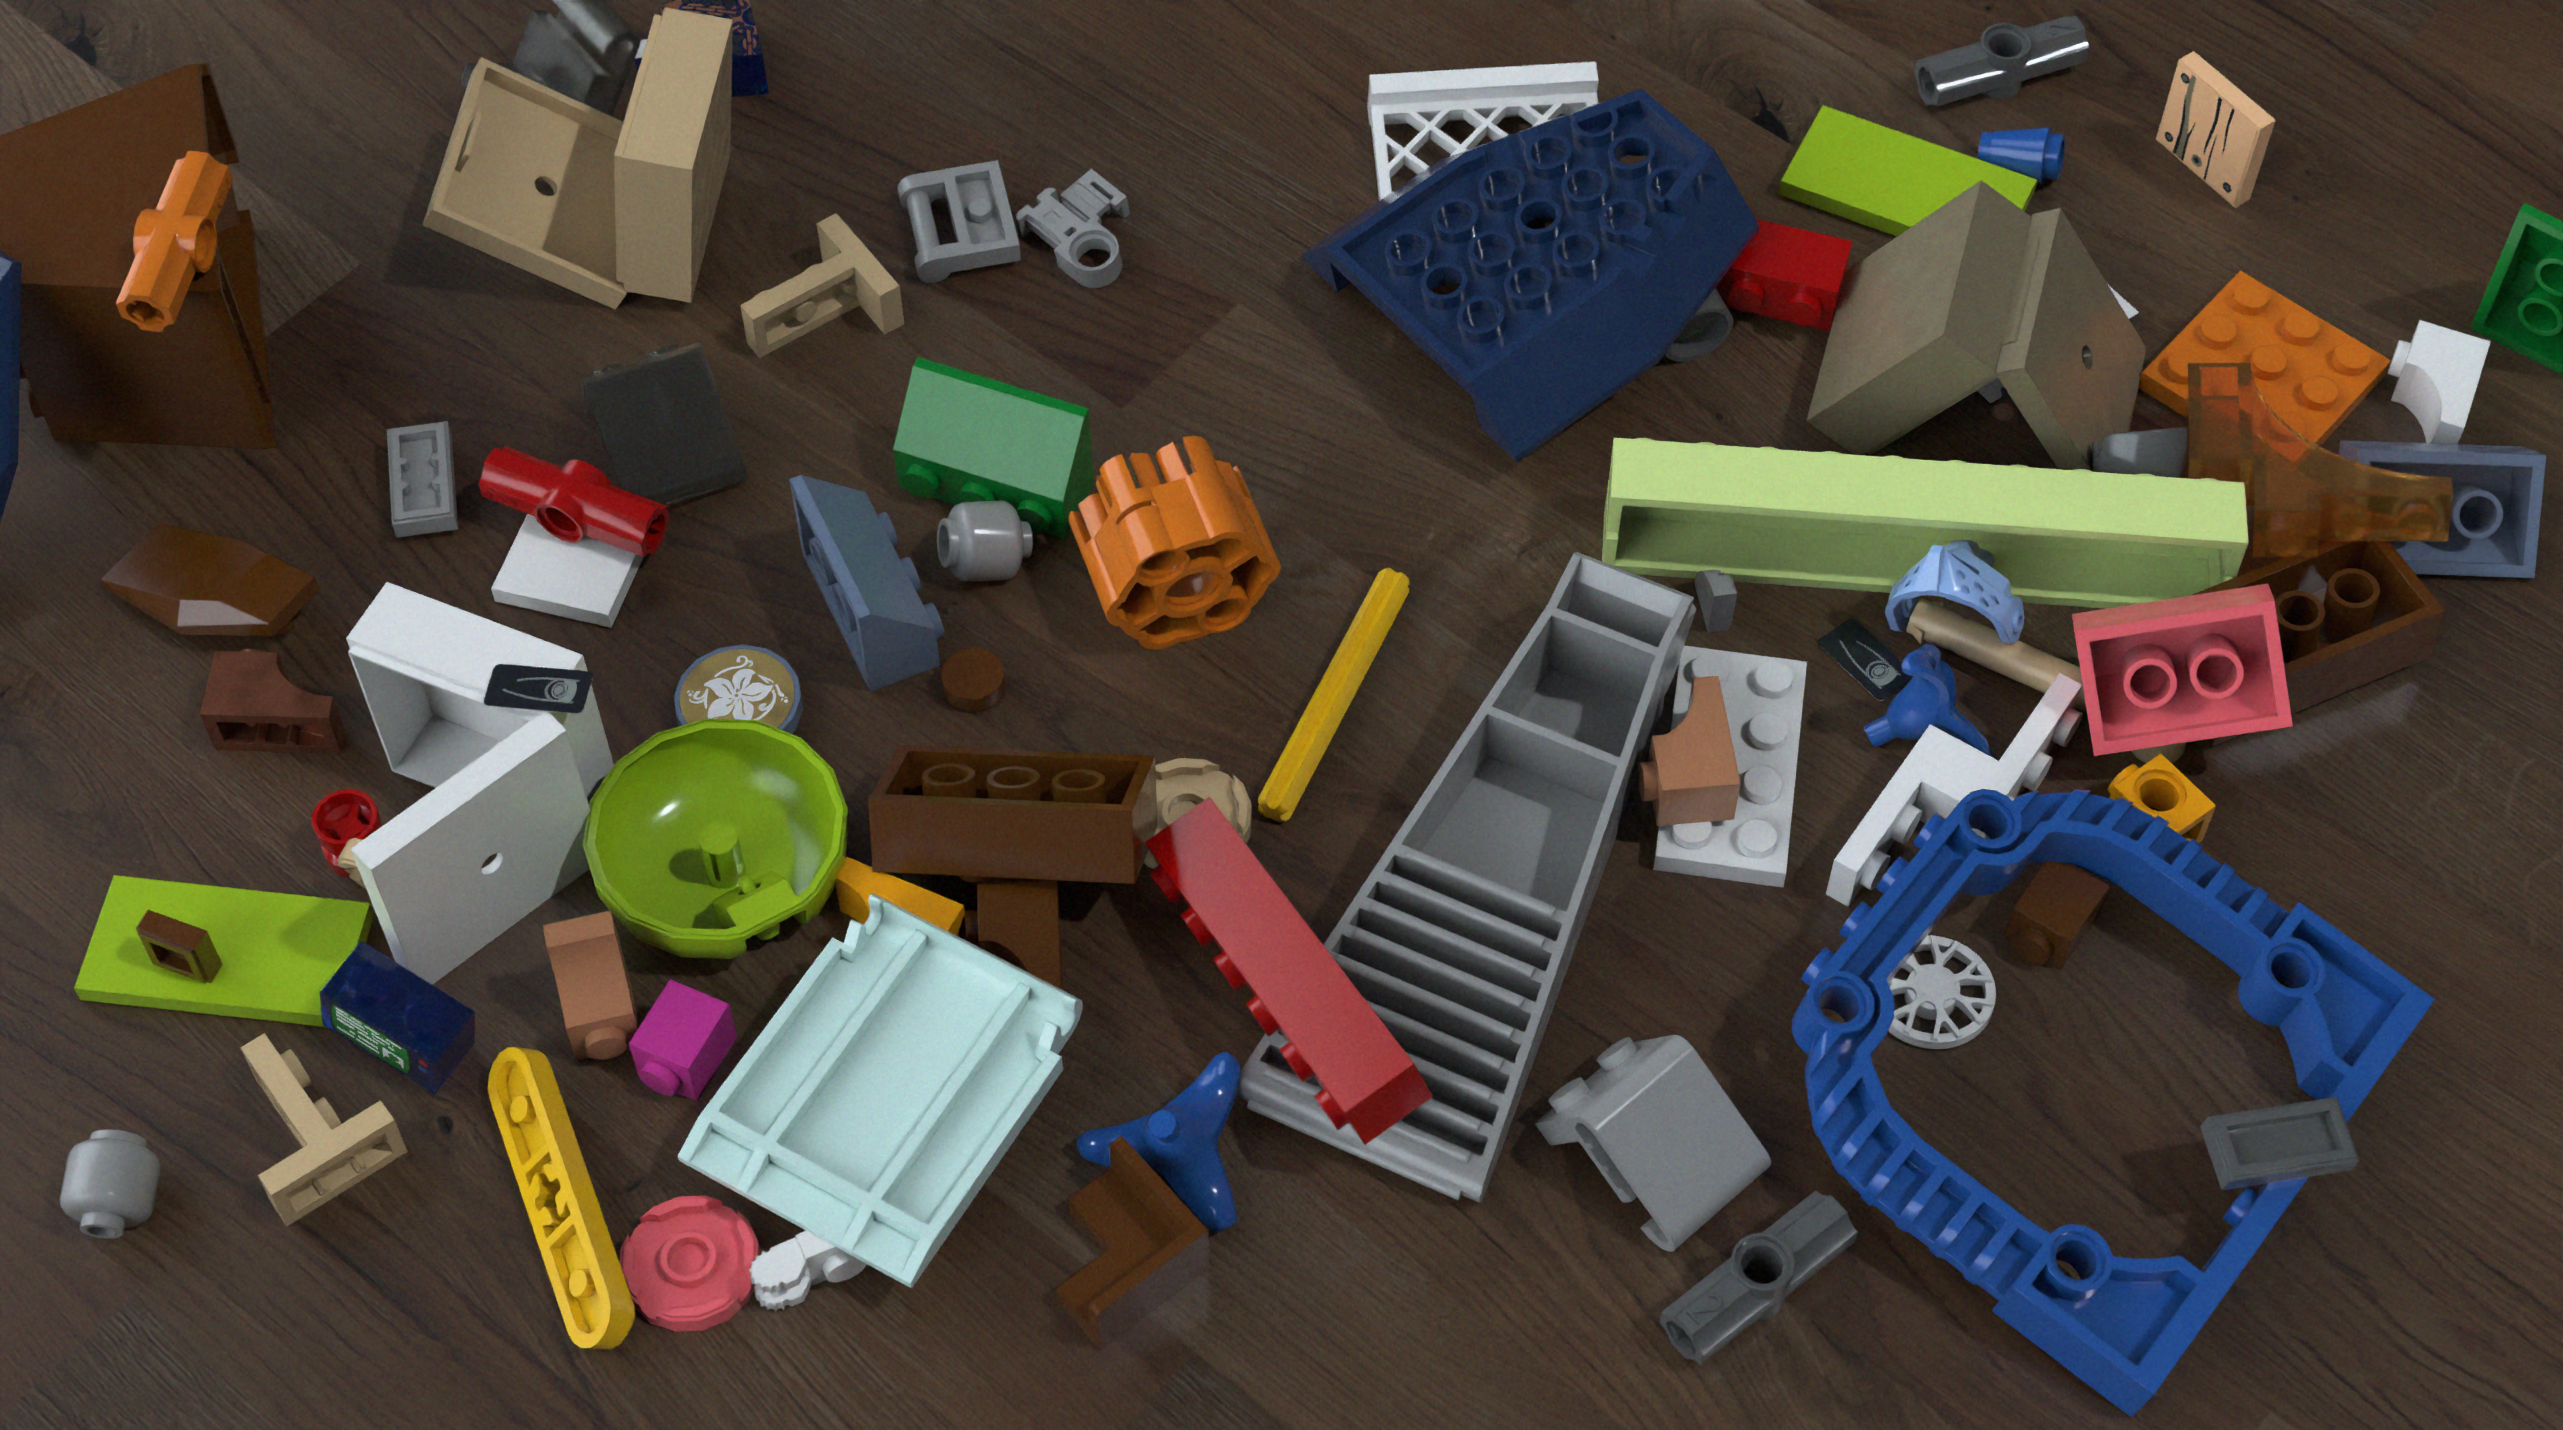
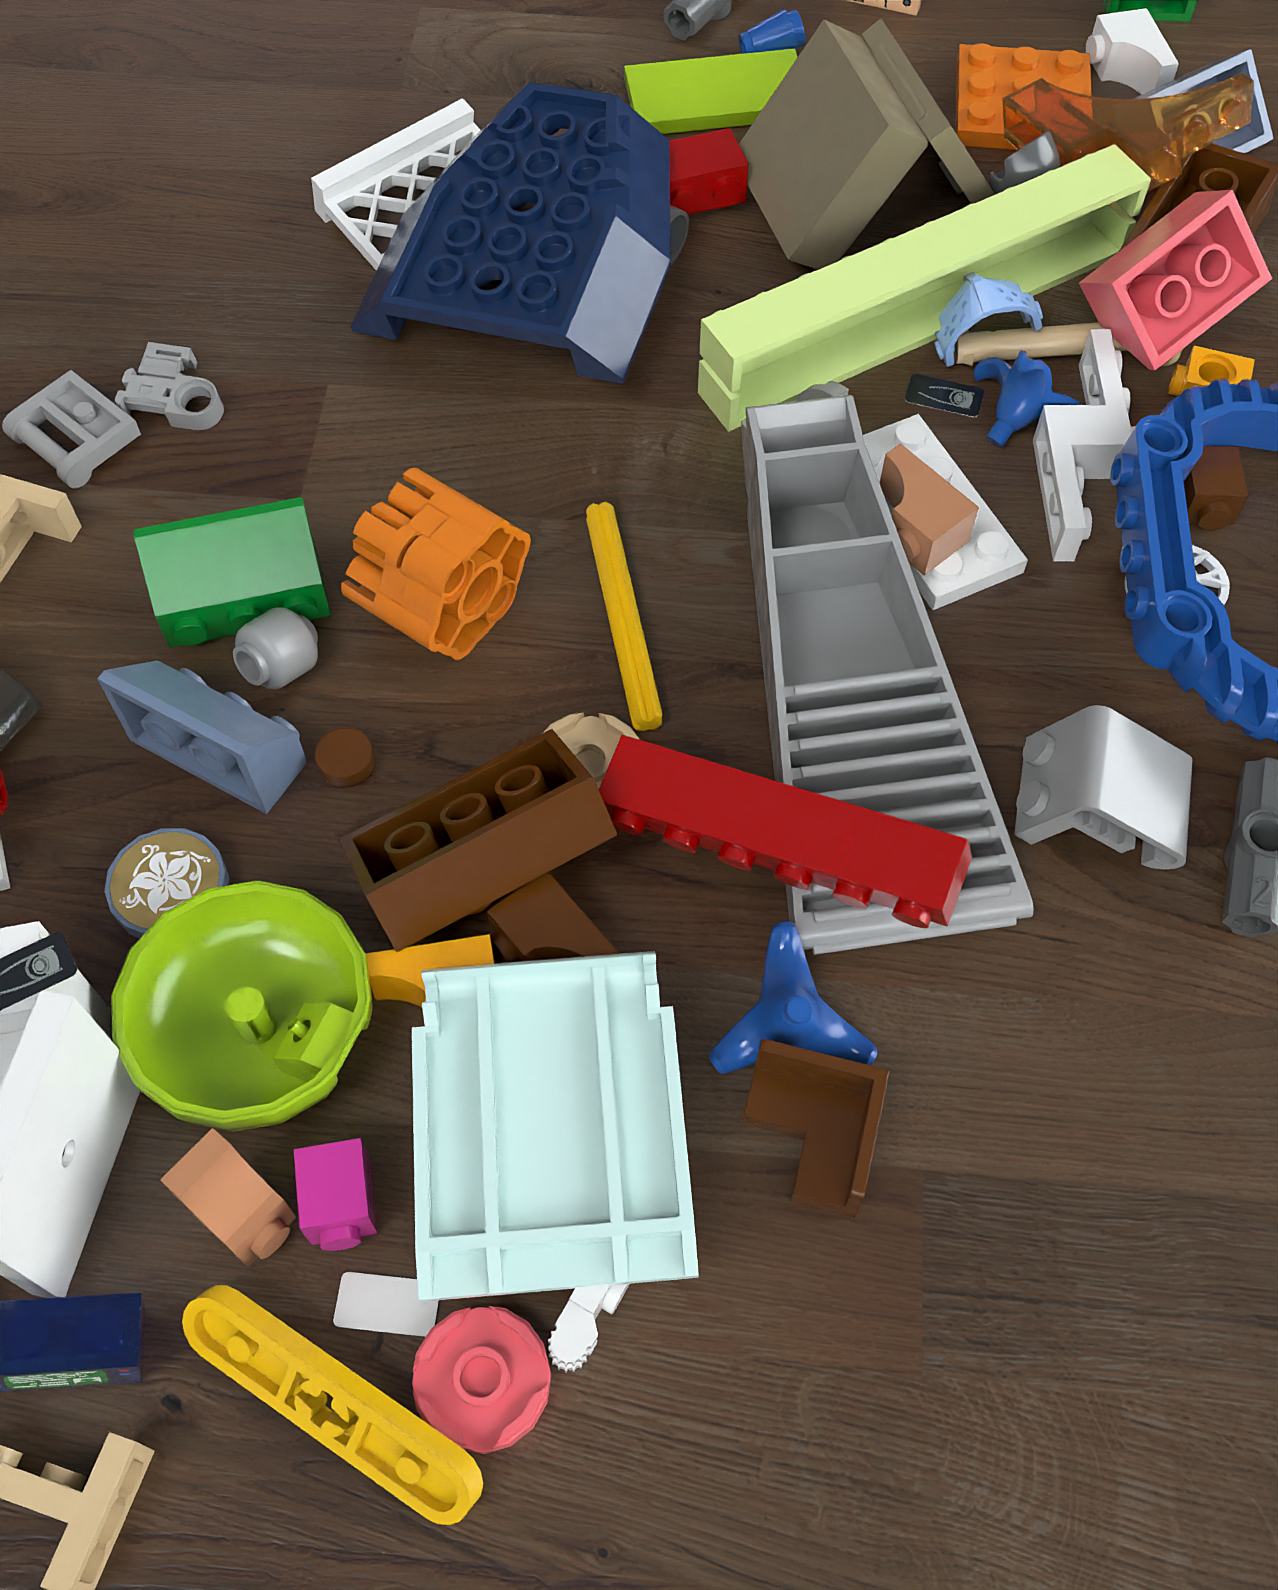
camera: 35 degrees left, 5 degrees up
(653, 1156) = (383, 1305): none -> white sticker

